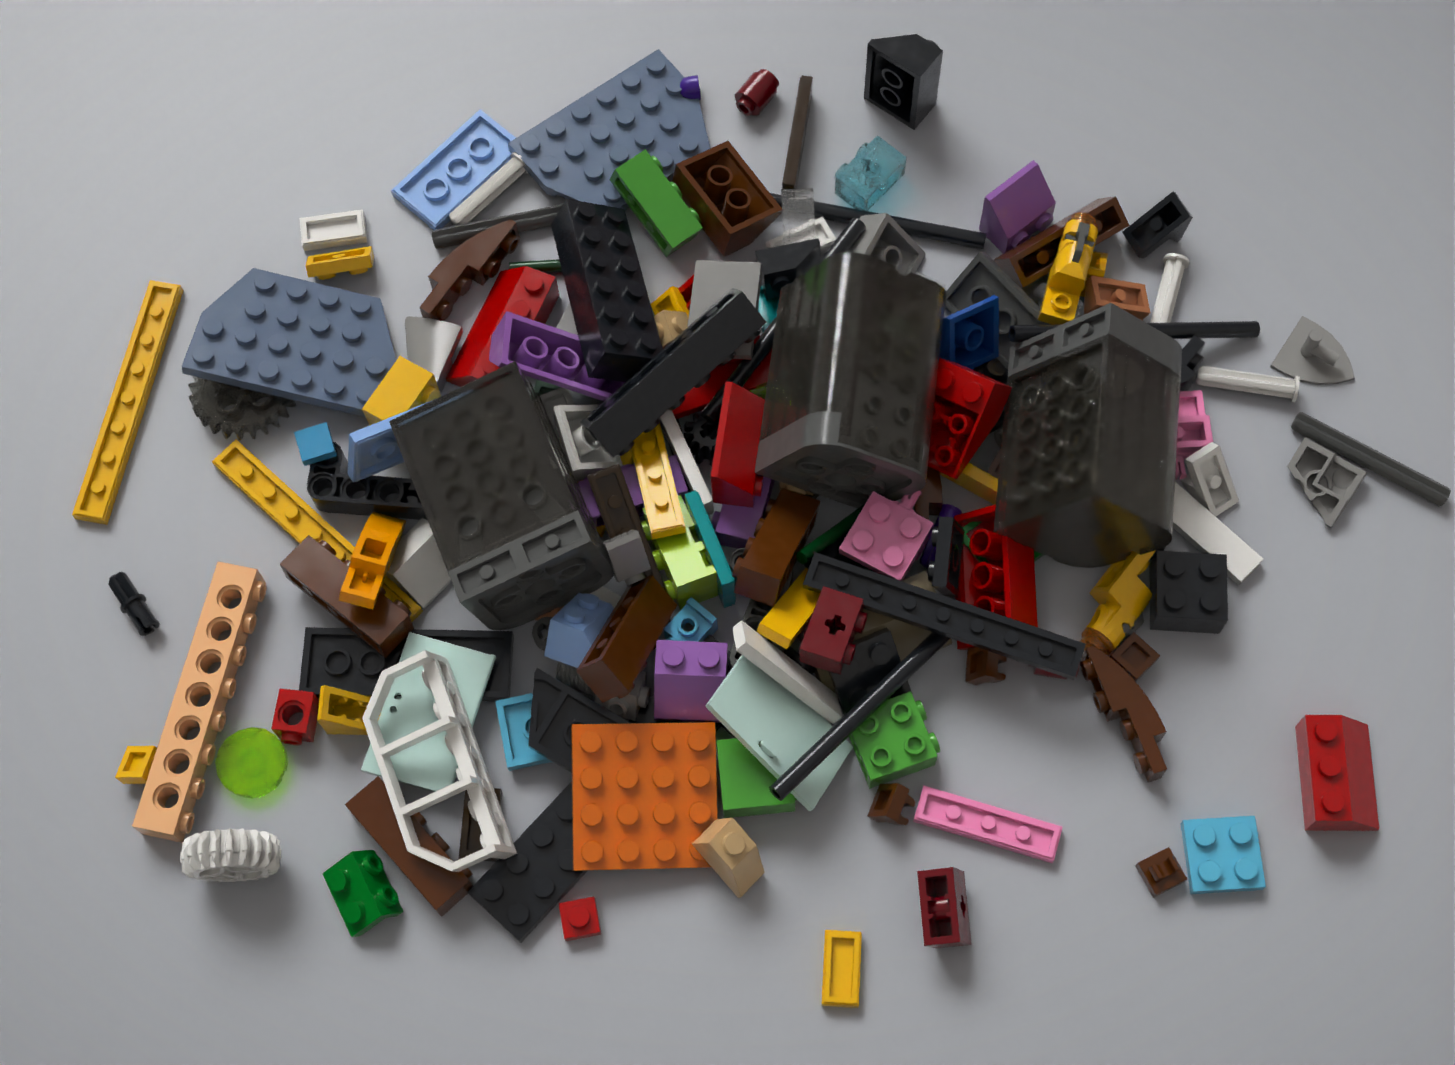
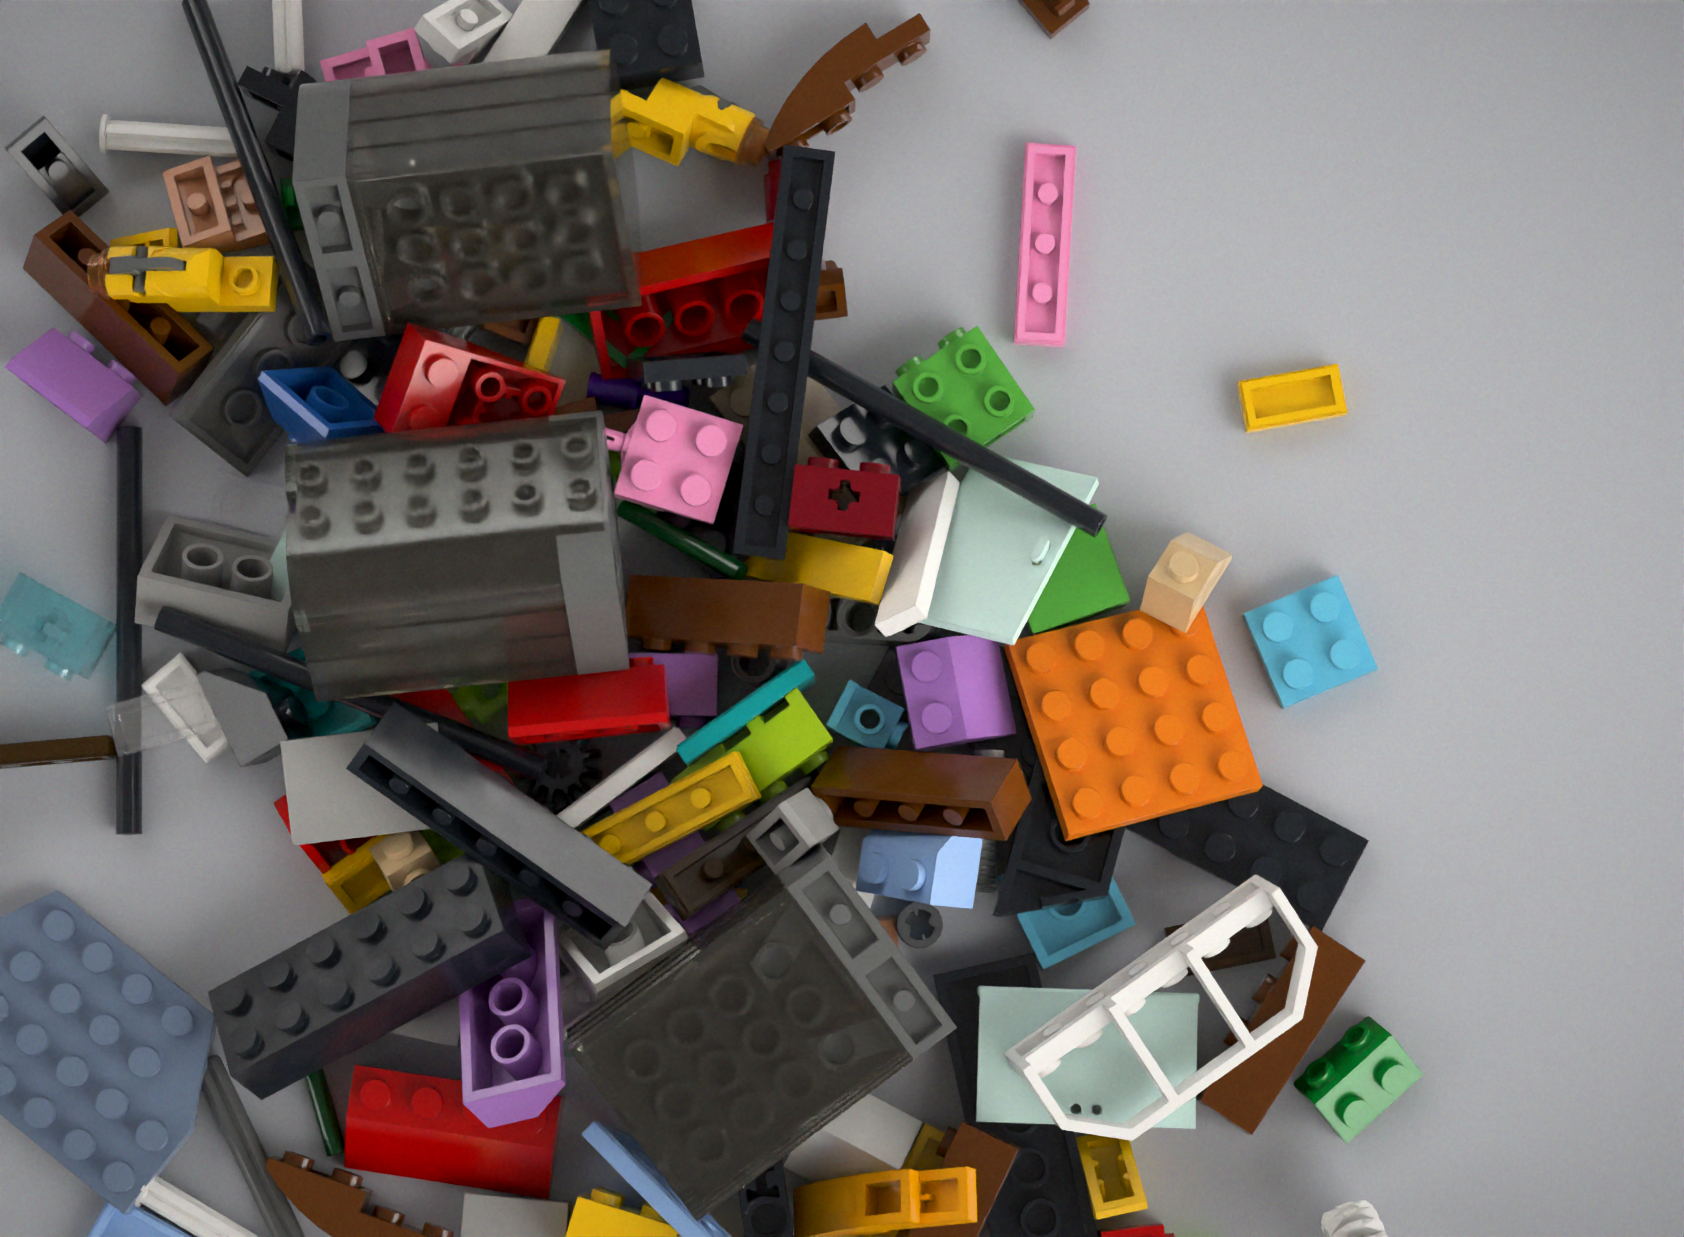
camera: 105 degrees left, 15 degrees up
(579, 918) = (1315, 767): red plate -> none
(656, 202) = (184, 943): bright green brick -> none
(667, 937) = (1309, 642): none -> medium azure plate
(726, 197) = (148, 840): reddish brown slope -> none
(889, 804) = (1054, 380): reddish brown tile -> none
(944, 908) = (1184, 274): dark red brick -> none
(1135, 656) = (758, 87): reddish brown plate -> none

